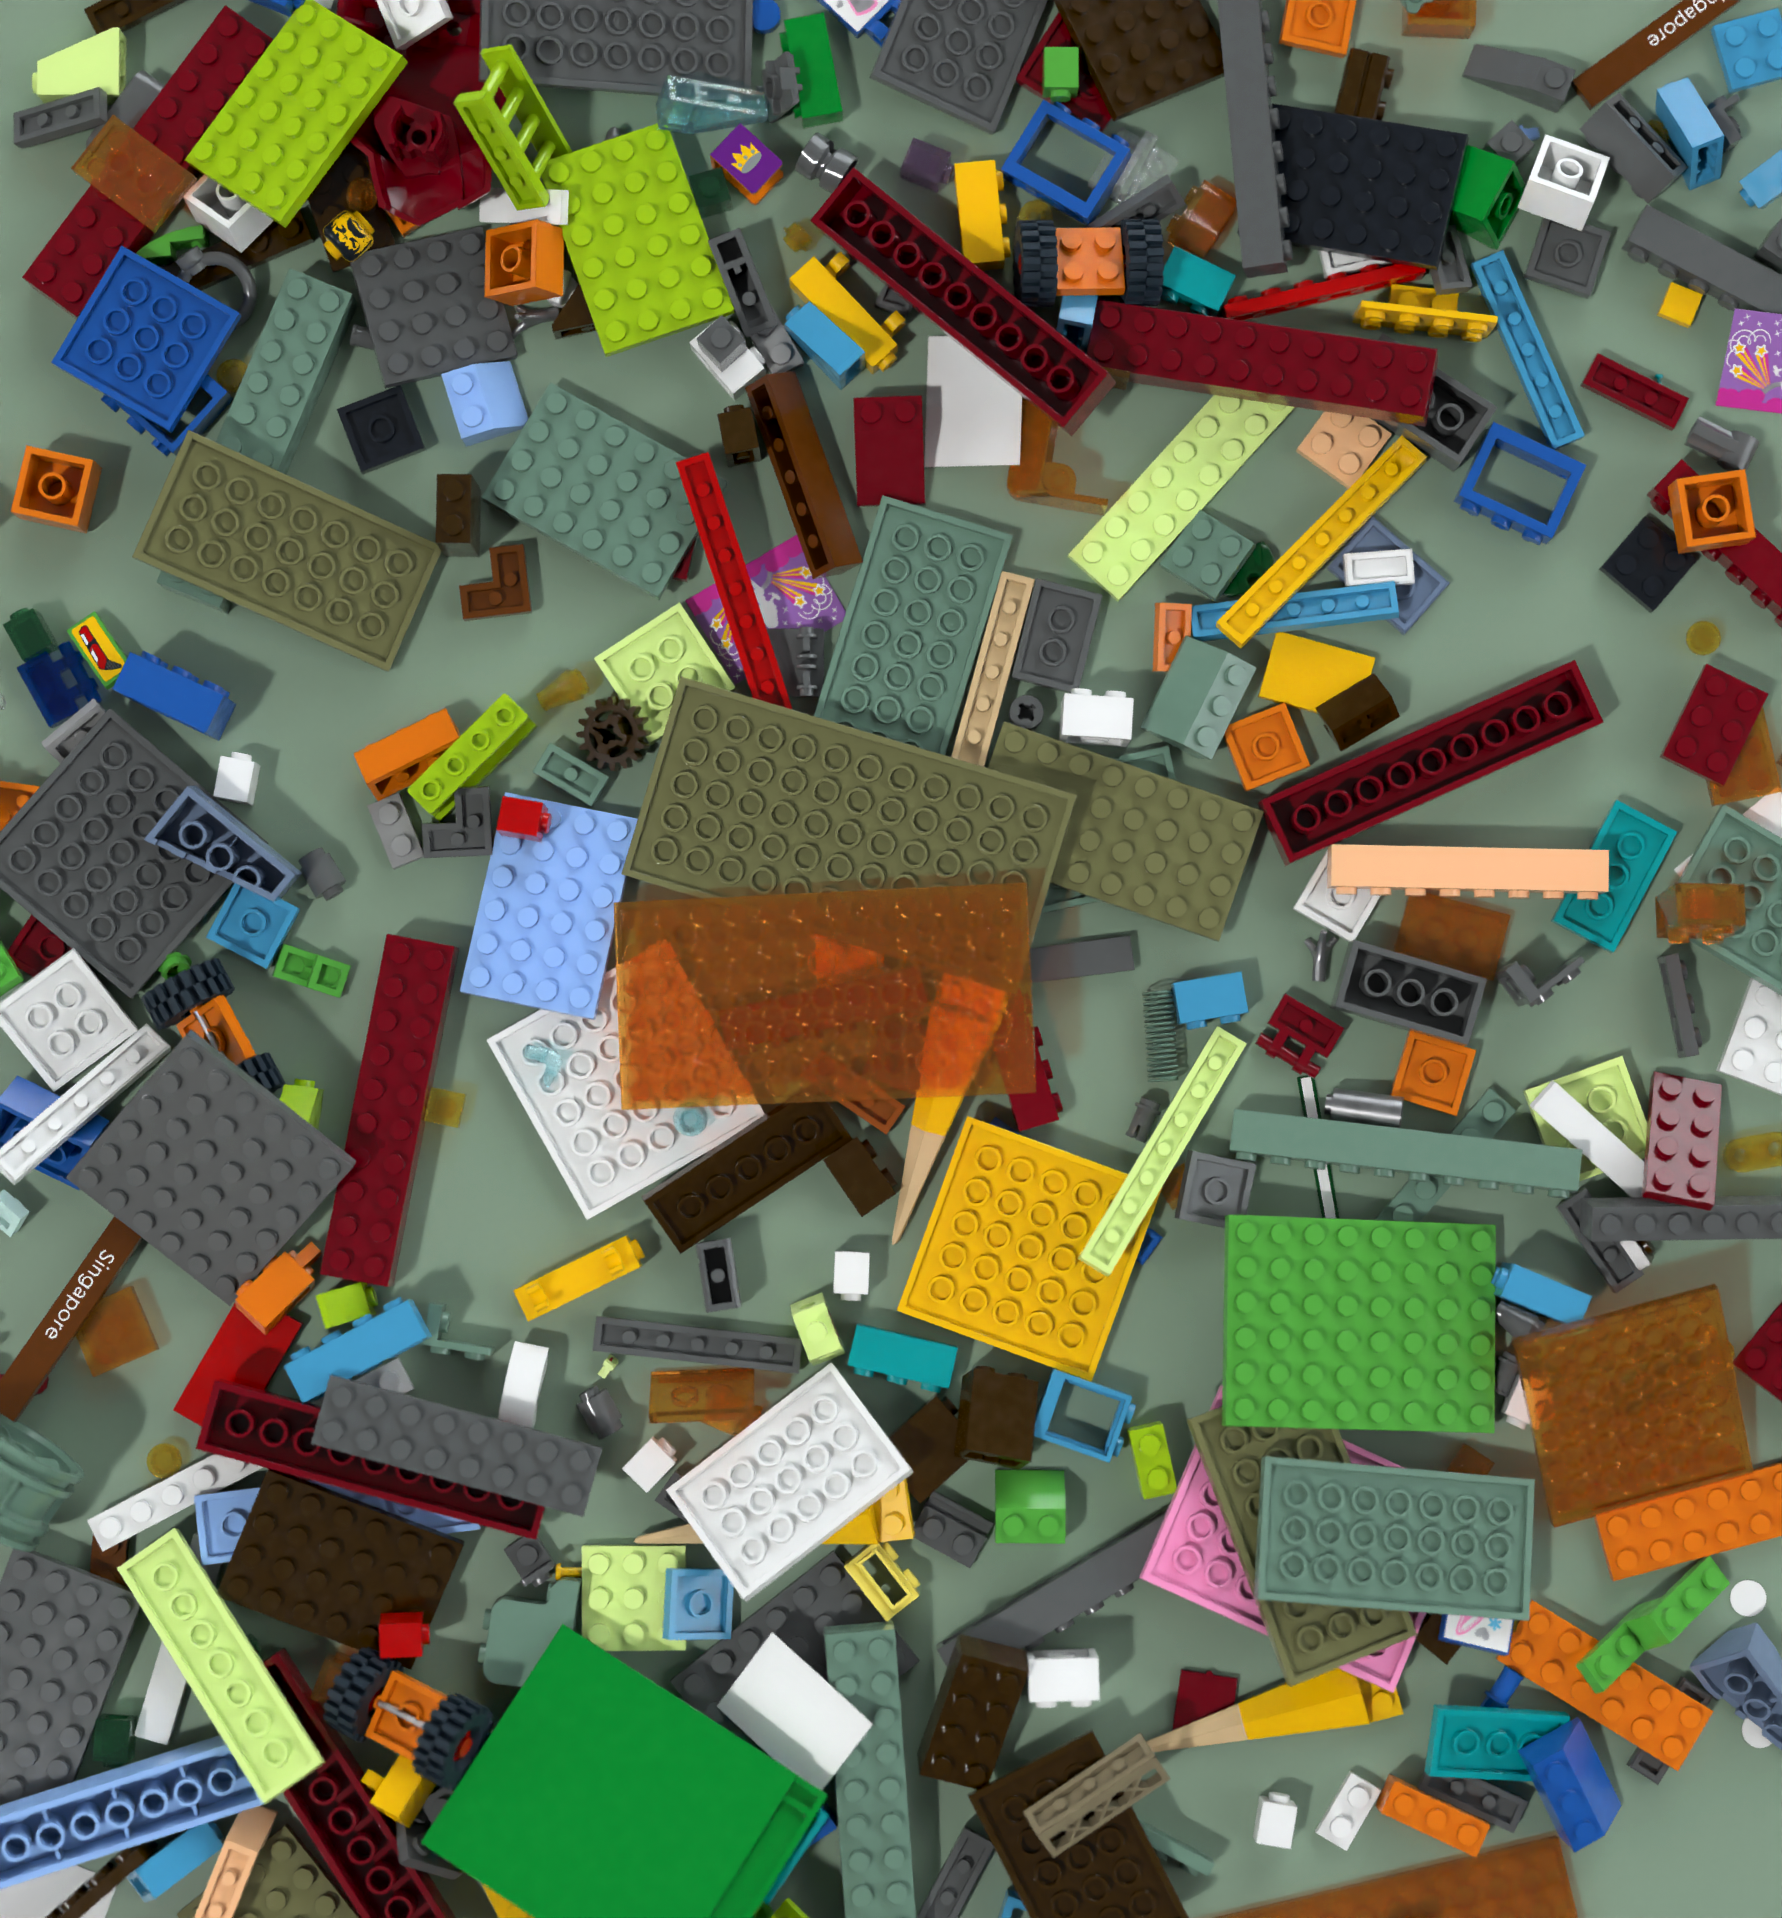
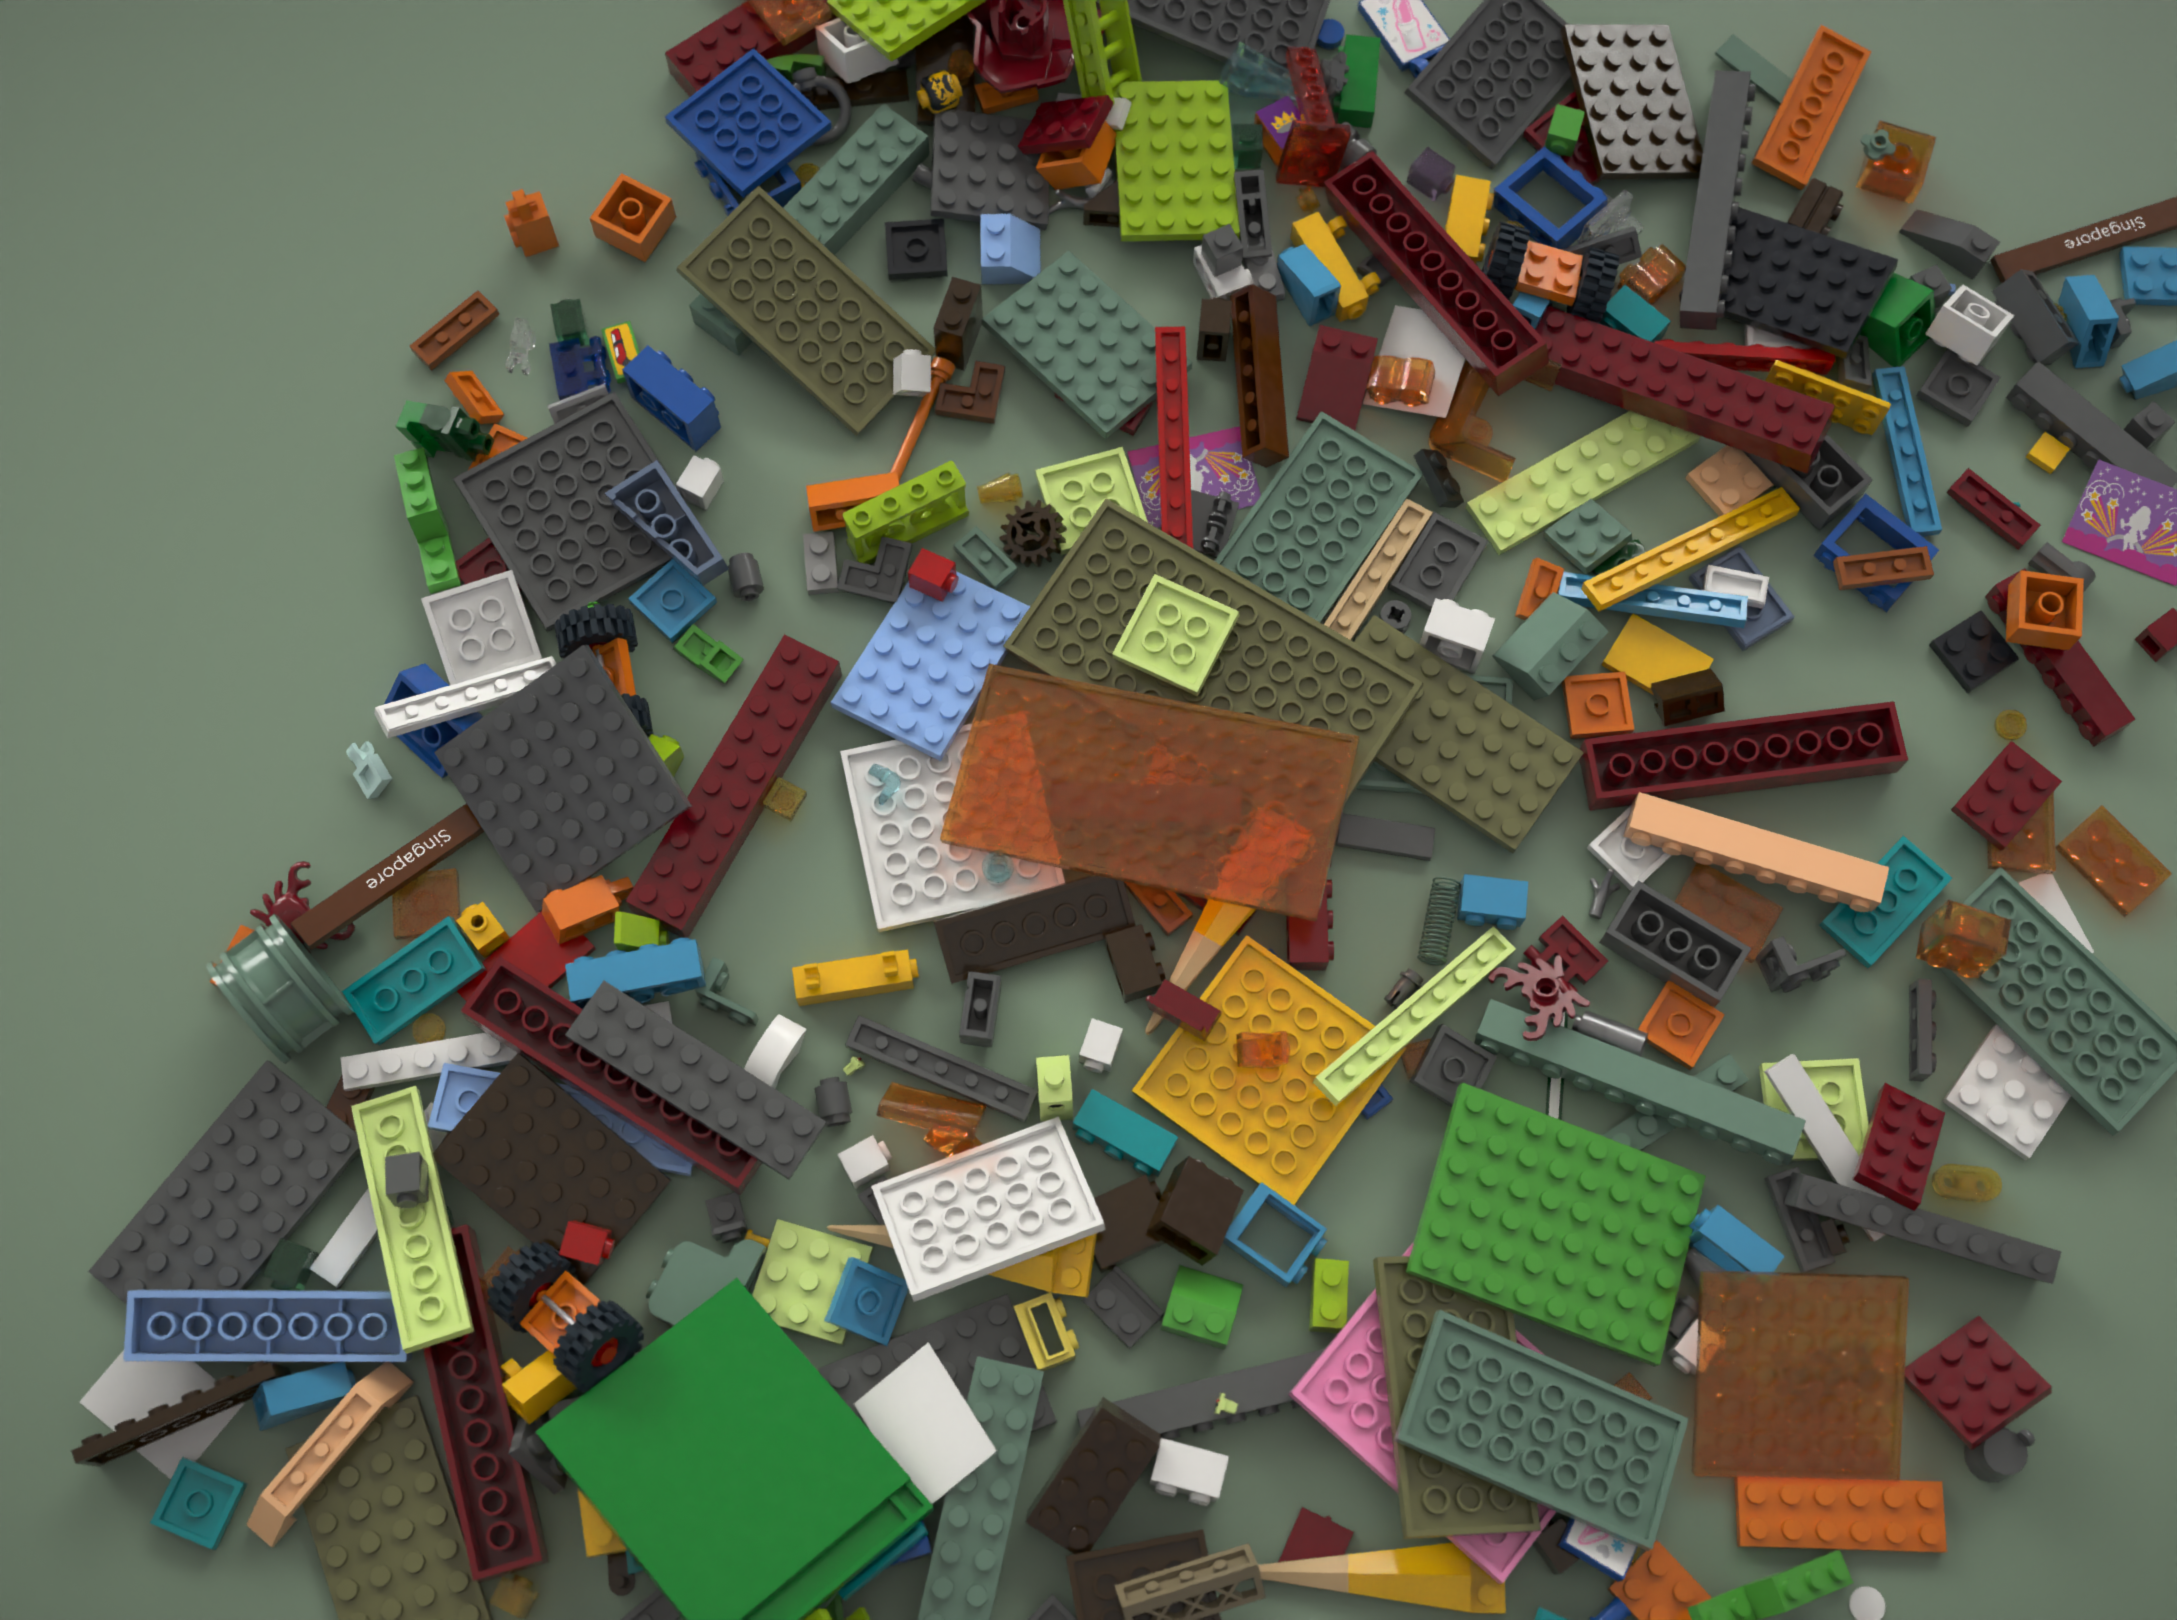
camera: 15 degrees right, 15 degrees down
(131, 1417) = (413, 980): none -> teal plate
(193, 1347) = (482, 928): none -> yellow brick
(204, 1634) = (406, 1180): none -> dark grey brick
(426, 589) = (912, 374): none -> white brick
(454, 572) = (940, 372): none -> orange piece
(503, 240) = (1065, 125): none -> dark red plate
(791, 181) = (1314, 142): none -> clear red bracket
(801, 816) = (1176, 635): none -> yellowish green plate
(925, 1215) = (1184, 1009): none -> dark red panel
(959, 435) = (1401, 380): none -> clear orange brick
(1017, 1235) = (1262, 1049): none -> clear orange bracket
(1030, 535) = (1435, 471): none -> pearl dark grey plate
(1079, 1603) = (1225, 1405): none -> yellowish green piece
(1290, 1087) = (1545, 992): none -> animal
(1531, 509) = (1883, 568): none -> dark orange plate

